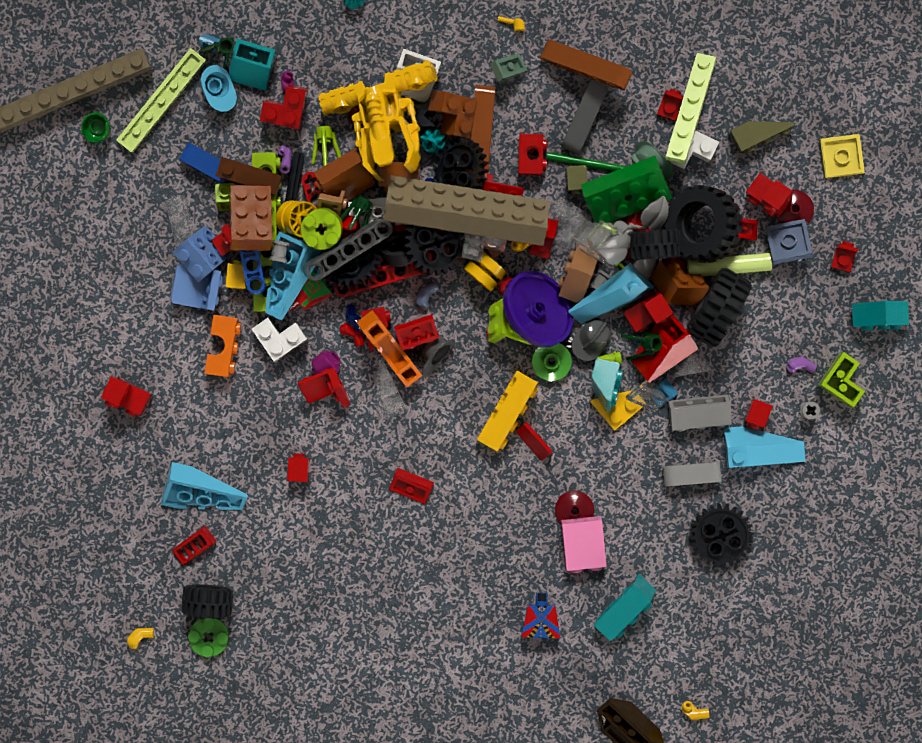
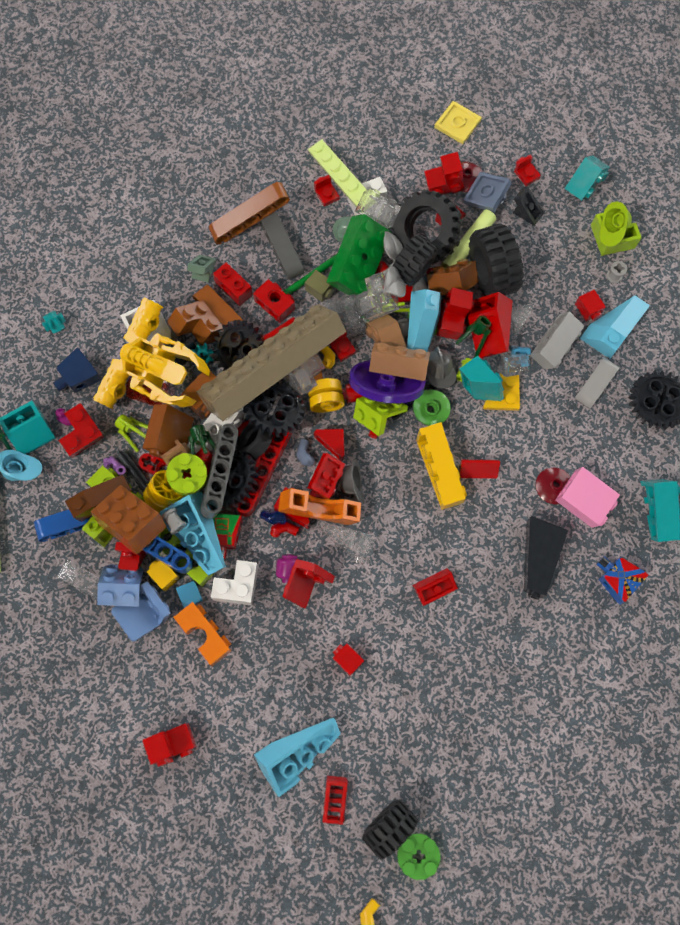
camera: 55 degrees left, 15 degrees down
(241, 309) = (189, 593): none -> dark azure slope
(329, 56) = (76, 372): none -> dark blue torso
(454, 309) = (332, 440): none -> red slope
(507, 545) = (542, 554): none -> black slope
(514, 108) = (232, 284): none -> red brick
(519, 24) = (179, 237): yellow hand -> none
(562, 305) = (399, 361): none -> medium nougat brick
(676, 173) = (378, 207): none -> clear brick
(756, 132) = (393, 156): olive slope -> none
(799, 363) = (576, 253): medium lavender arm -> none
(806, 287) = (527, 206): none -> black slope
(842, 376) = (614, 223): none -> lime piece

